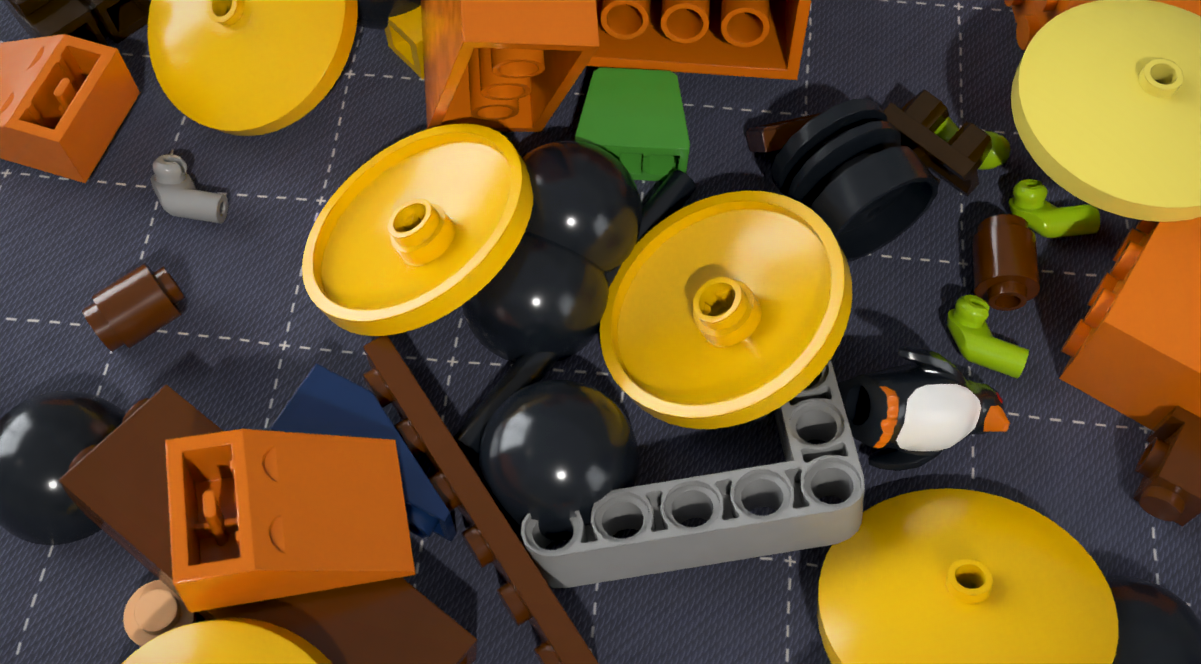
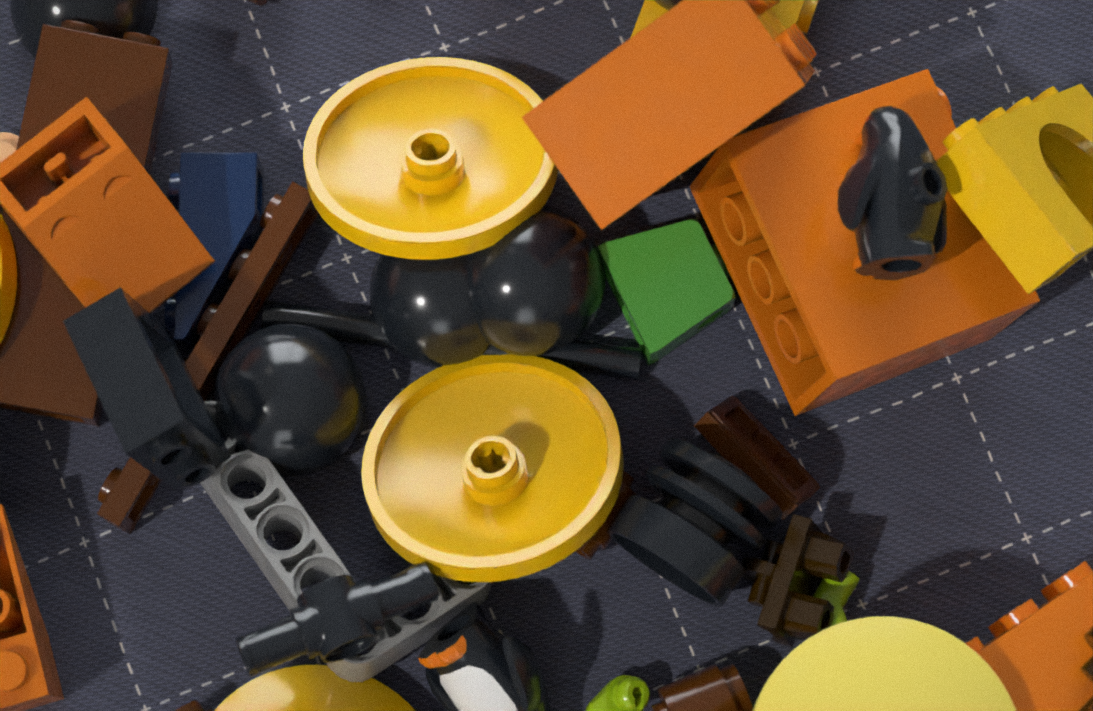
camera: 65 degrees right, 15 degrees up
(491, 542) = (147, 390): none -> black window
(817, 484) = (337, 618): none -> black pin

